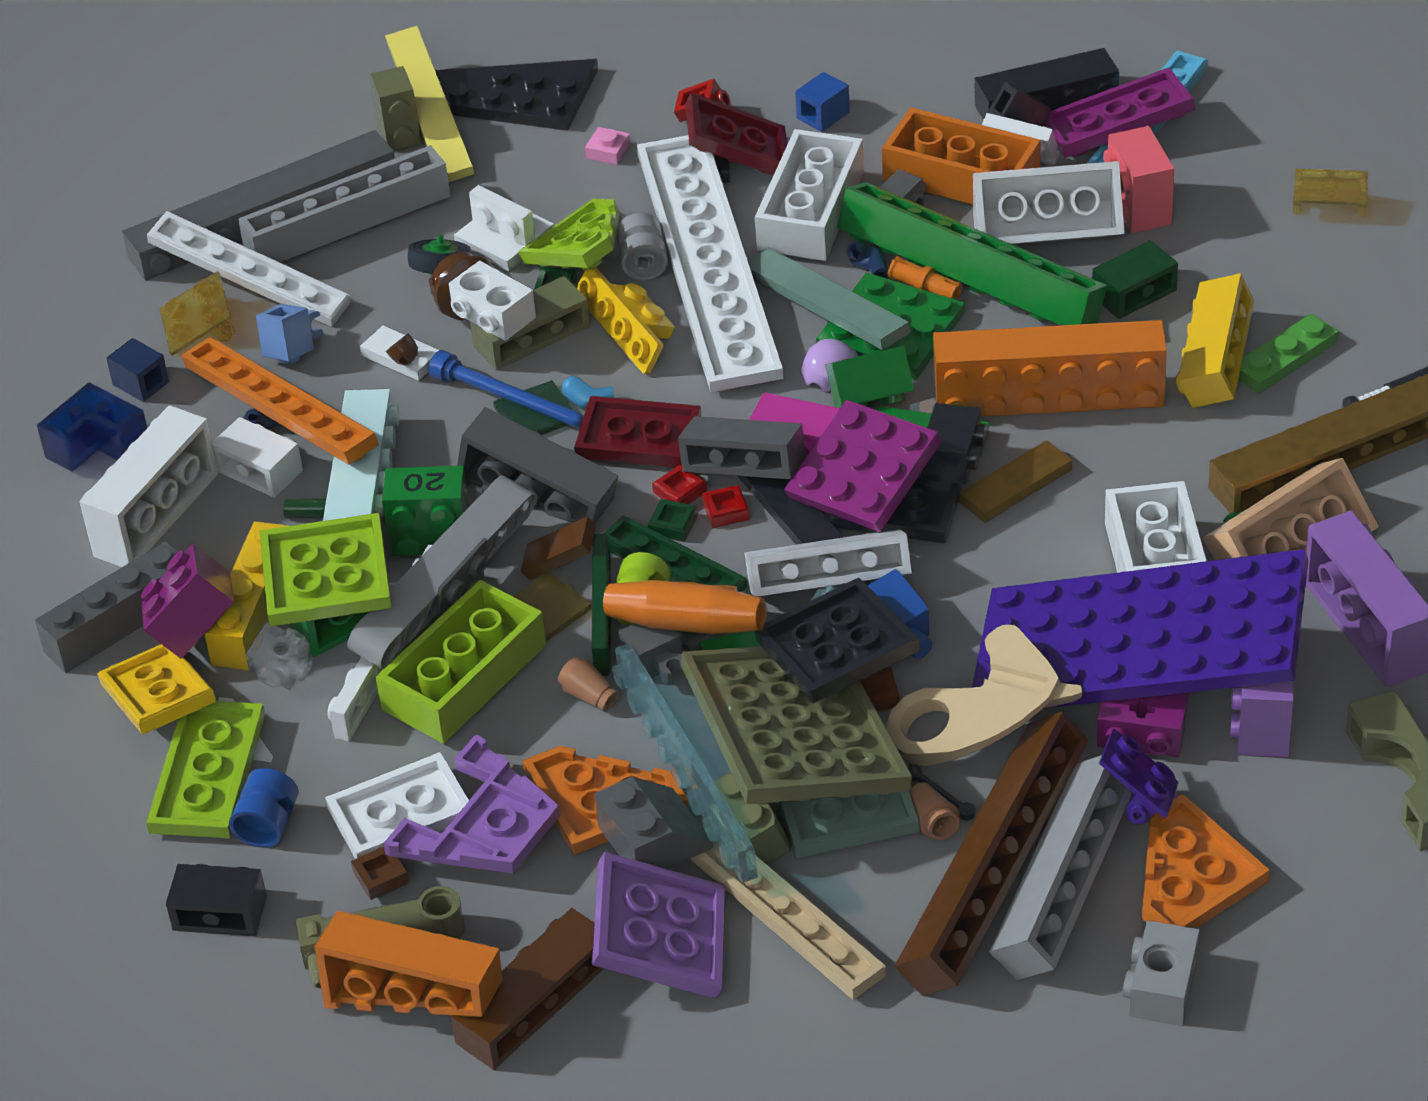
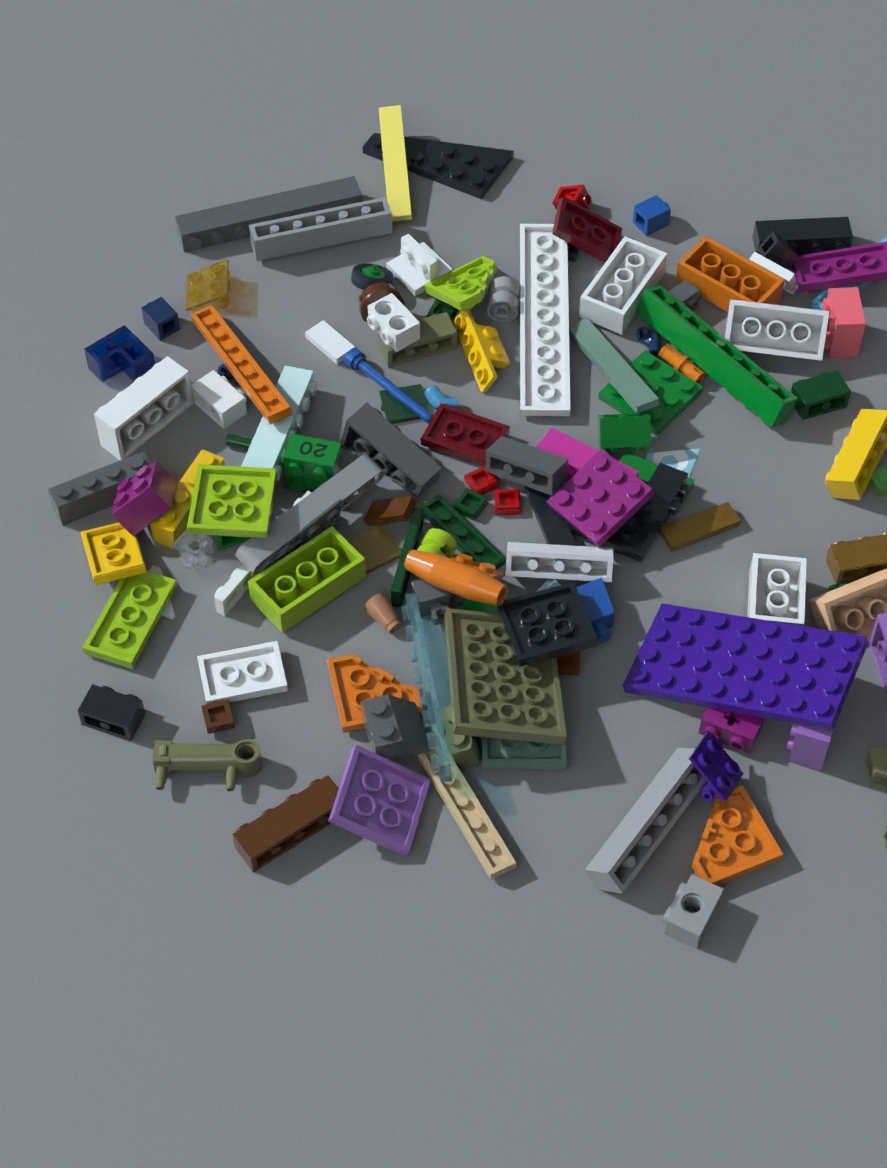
camera: 10 degrees right, 10 degrees up
(247, 267) = (248, 261): white tile -> none
(264, 808) = (157, 654): blue wheel -> none
(287, 332) = (260, 313): medium blue brick -> none
(396, 108) = (371, 163): olive brick -> none
(403, 350) = (330, 343): reddish brown hinge -> none
(404, 968) = (211, 794): orange wedge -> none
(492, 829) = (295, 704): medium lavender wing -> none
(607, 145) = (503, 217): bright pink plate -> none
(818, 355) = (600, 406): lavender hair -> none
(935, 813) = (578, 758): nougat cone -> none
(965, 809) = (601, 760): black hinge -> none
(991, 855) = (606, 799): reddish brown brick -> none
(1016, 690) = (626, 698): tan animal -> none
(1052, 368) = (743, 452): orange brick -> none

